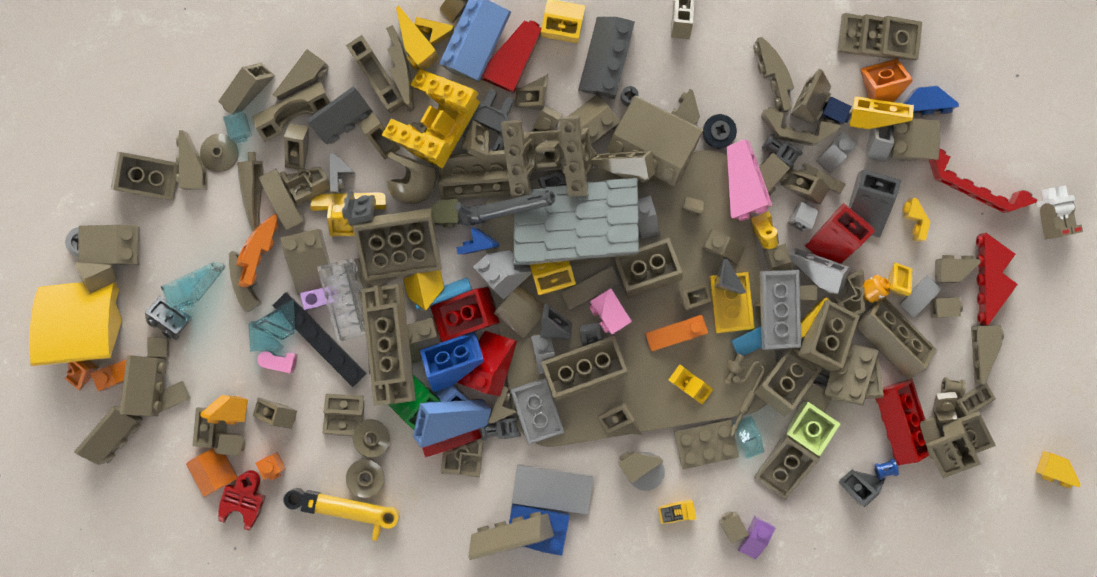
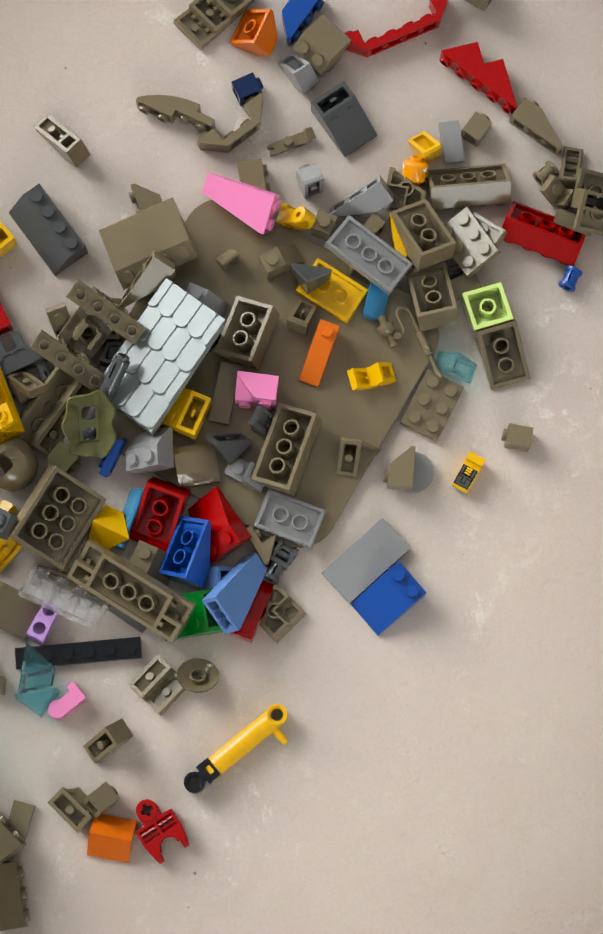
camera: 50 degrees left, 10 degrees down
(227, 409) = (70, 775): light orange slope -> none
(270, 466) = (150, 780): orange brick -> none
(358, 485) = (219, 700): dark tan dish -> none
(493, 221) = (74, 424): none -> olive piece
(510, 536) = (374, 621): dark tan slope -> none
(532, 95) = (27, 314): dark tan slope -> none
(597, 117) = (92, 273): dark tan slope -> none
(634, 92) = (93, 243): dark grey bush -> none
(716, 137) = (187, 197): black wheel -> none
(758, 538) = (544, 425): medium lavender slope -> none
(782, 150) = (243, 153): dark grey connector -> none
(806, 186) = (287, 158): dark tan slope -> none
(812, 98) = (220, 97): dark tan slope -> none
(836, 152) = (280, 114): light grey slope -> none
(840, 235) = (348, 162): red slope -> none
(862, 486) = (568, 310): dark grey slope -> none
(877, 113) = (275, 57): yellow slope -> none
(914, 211) = (380, 92): yellow slope -> none
(954, 270) = (451, 98): dark tan slope -> none

